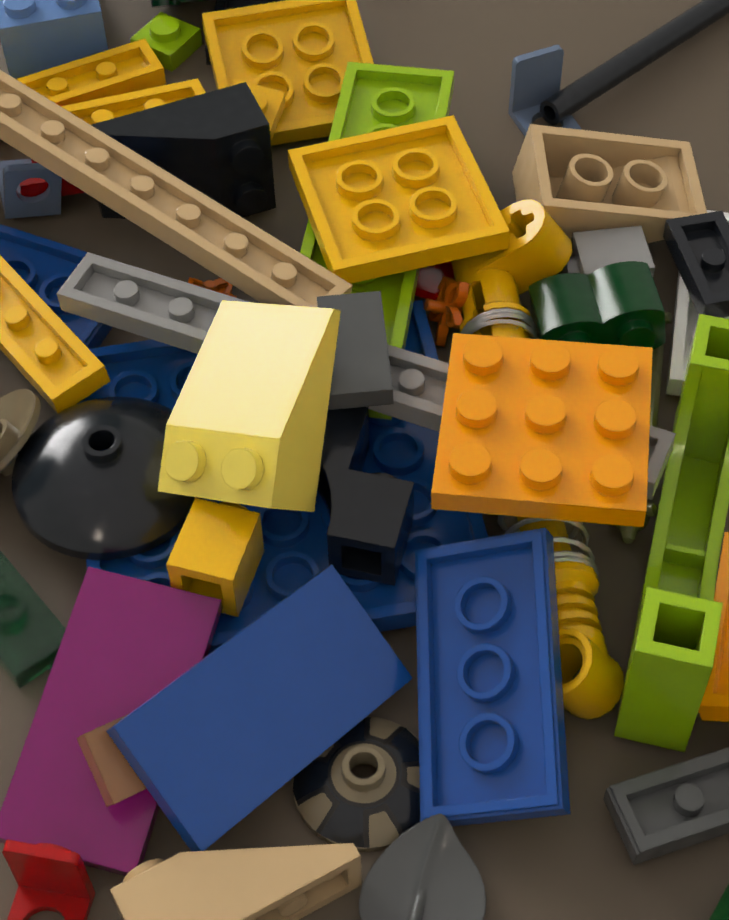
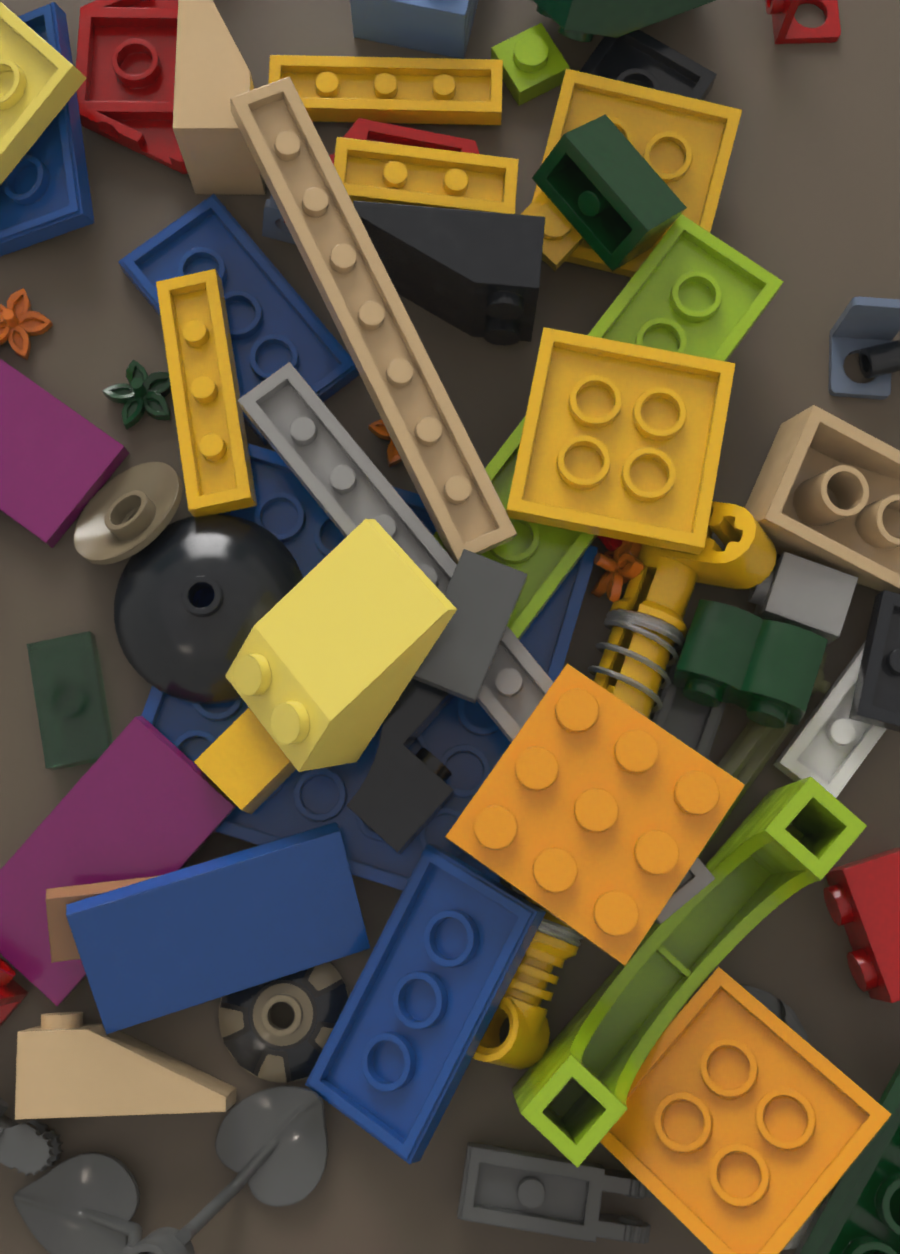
camera: 25 degrees right, 25 degrees up
(283, 63) = (608, 191): none -> dark green brick

